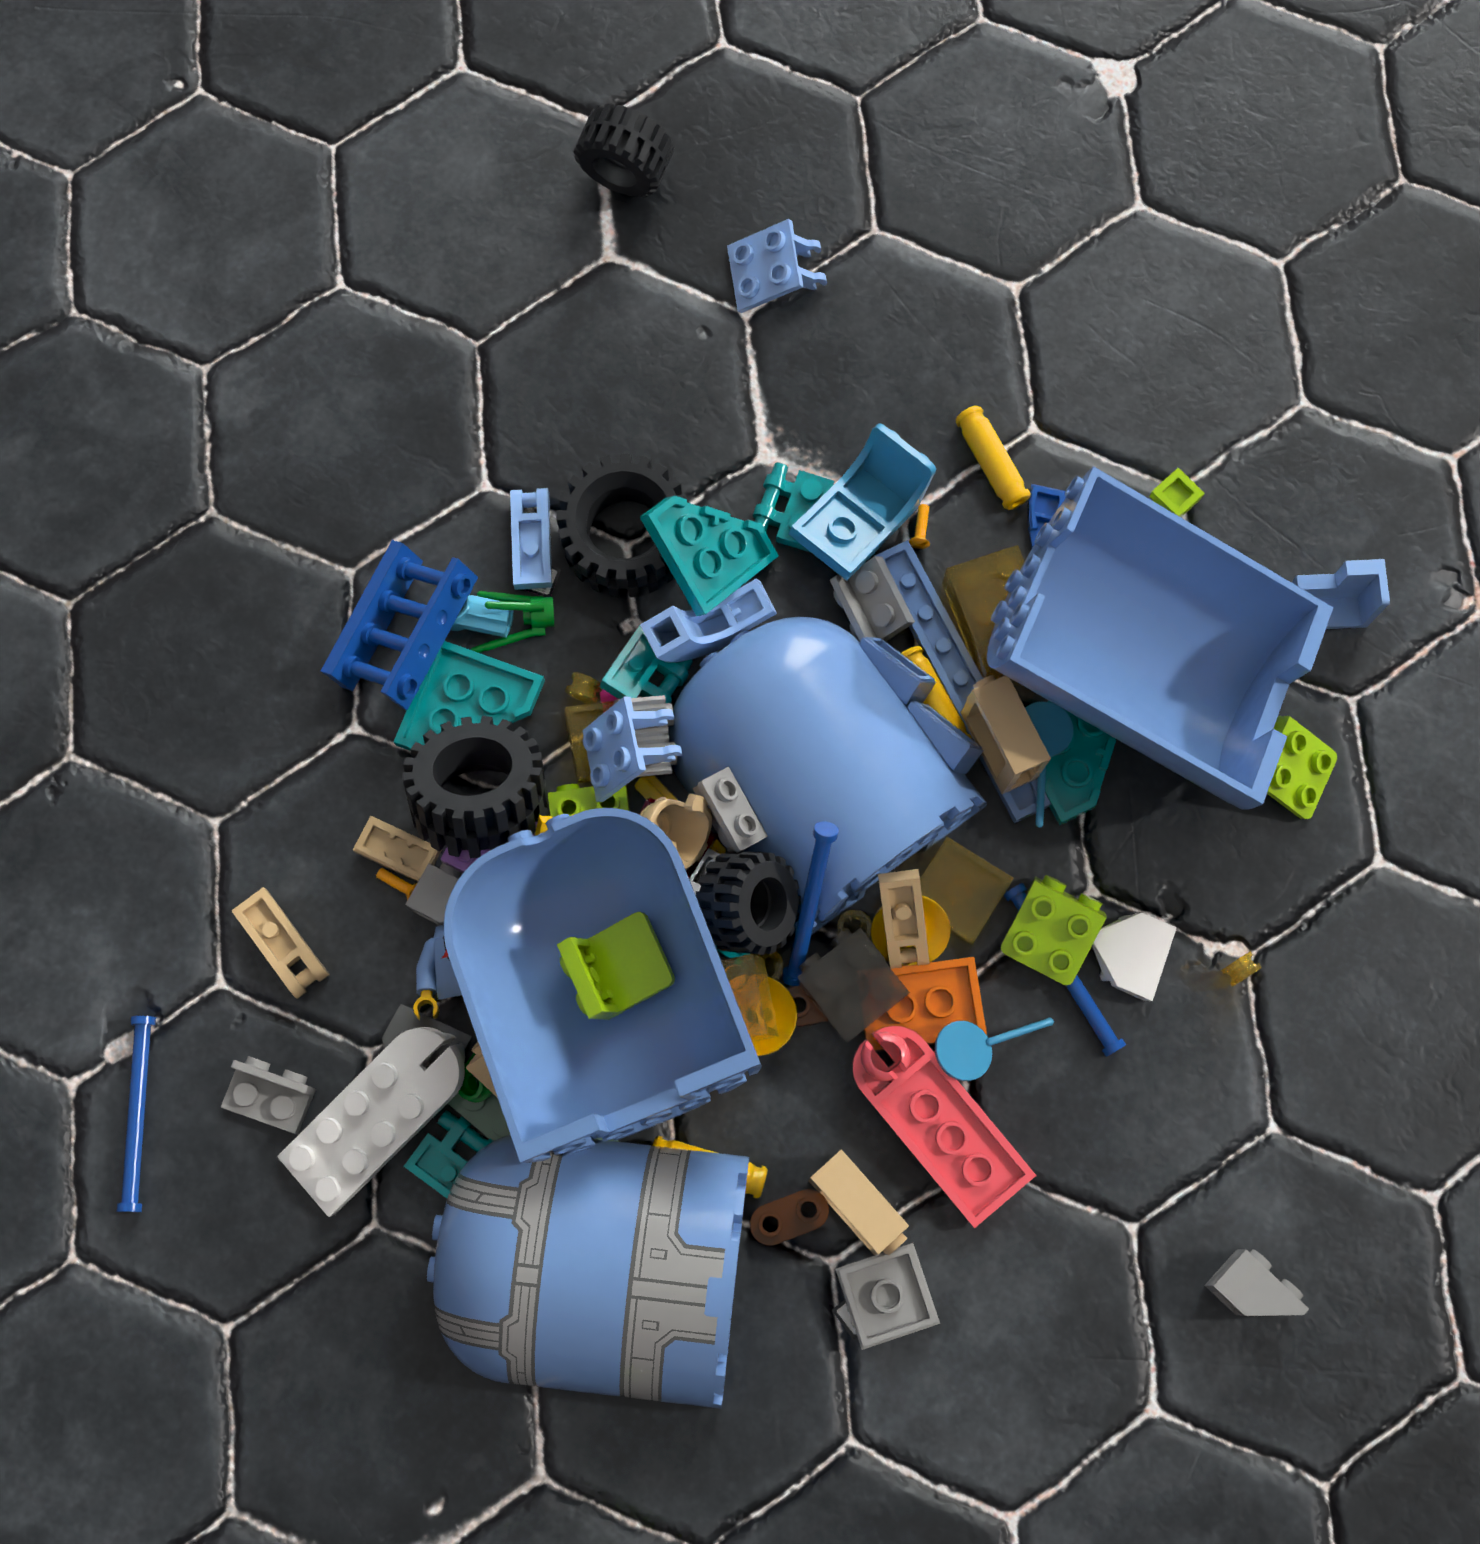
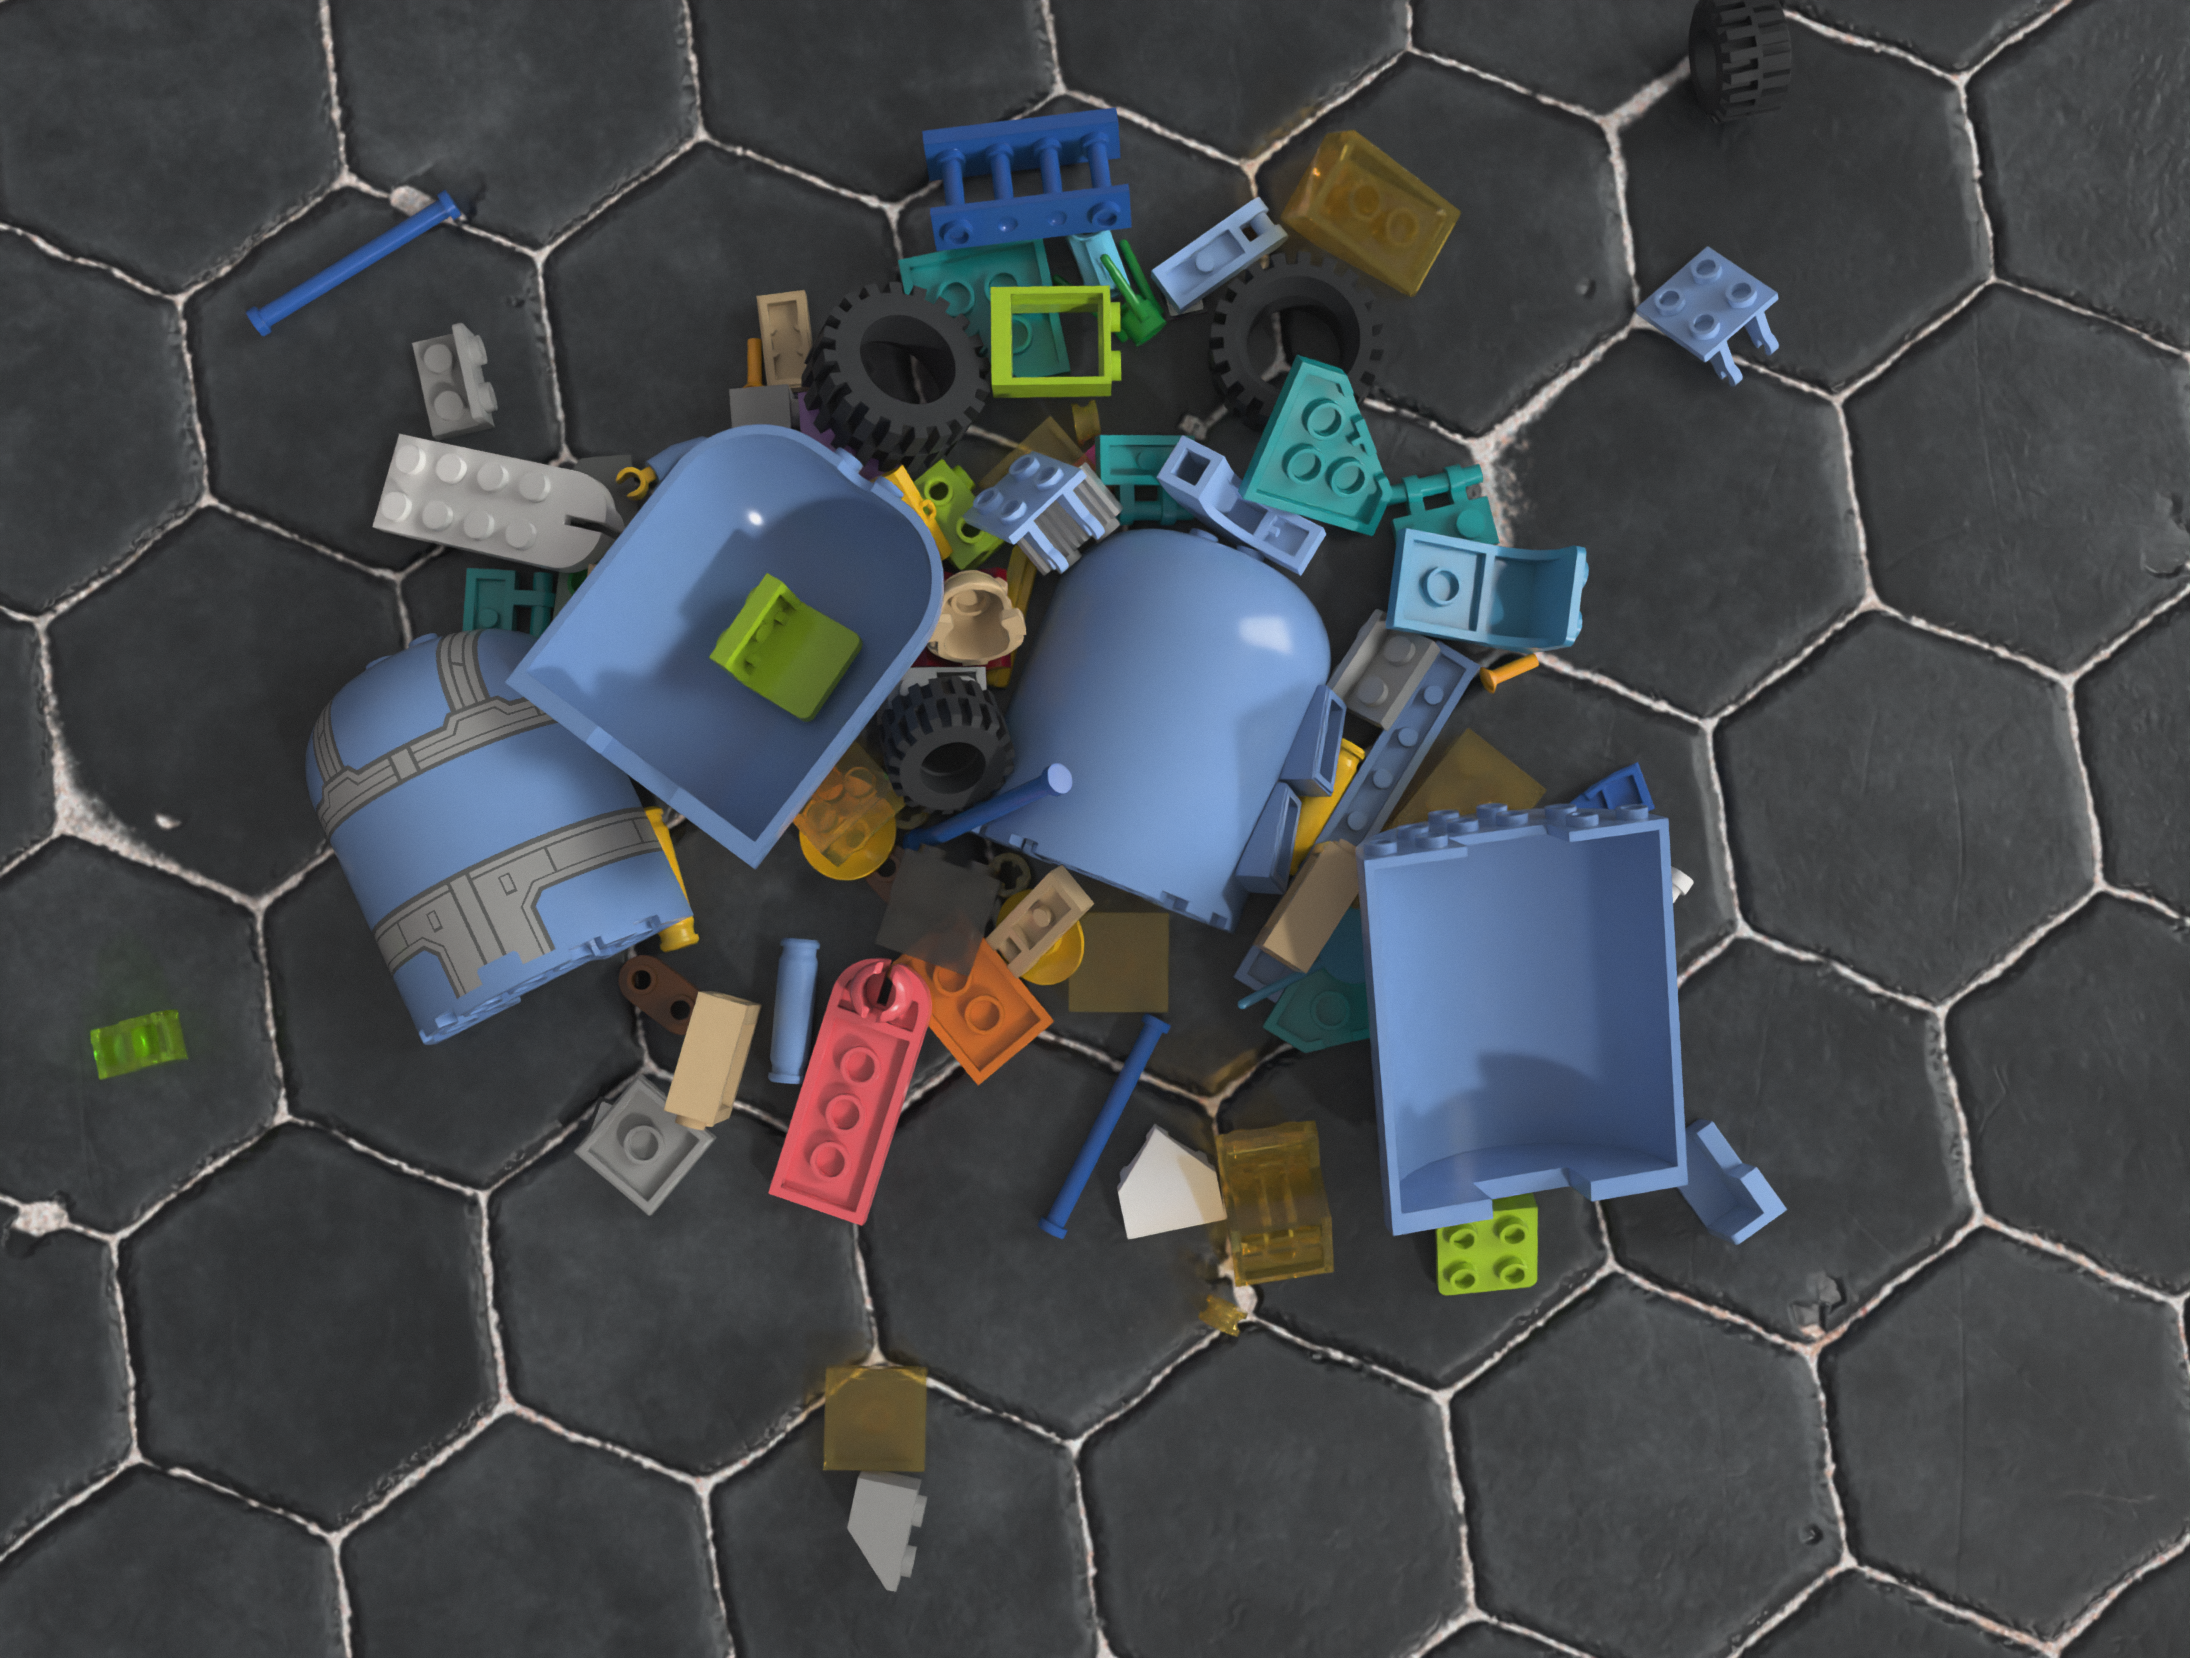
camera: 60 degrees right, 10 degrees up
(279, 941) = (615, 287): tan plate -> none
(496, 704) = (1052, 300): none -> lime window
(567, 428) = (1370, 212): none -> clear yellow slope
(731, 811) = (1033, 664): light grey bracket -> none
(857, 1131) = (794, 1010): none -> medium blue axle
(966, 1050) = (946, 1072): dark azure piece -> none
(992, 457) = (1641, 700): yellow axle -> none
(1054, 930) = (1138, 1089): lime bracket -> none
(1176, 1252) = (875, 1418): none -> clear yellow plate
(1177, 493) = (1729, 932): lime plate -> none
(1187, 884) = (1275, 1203): none -> clear yellow bracket

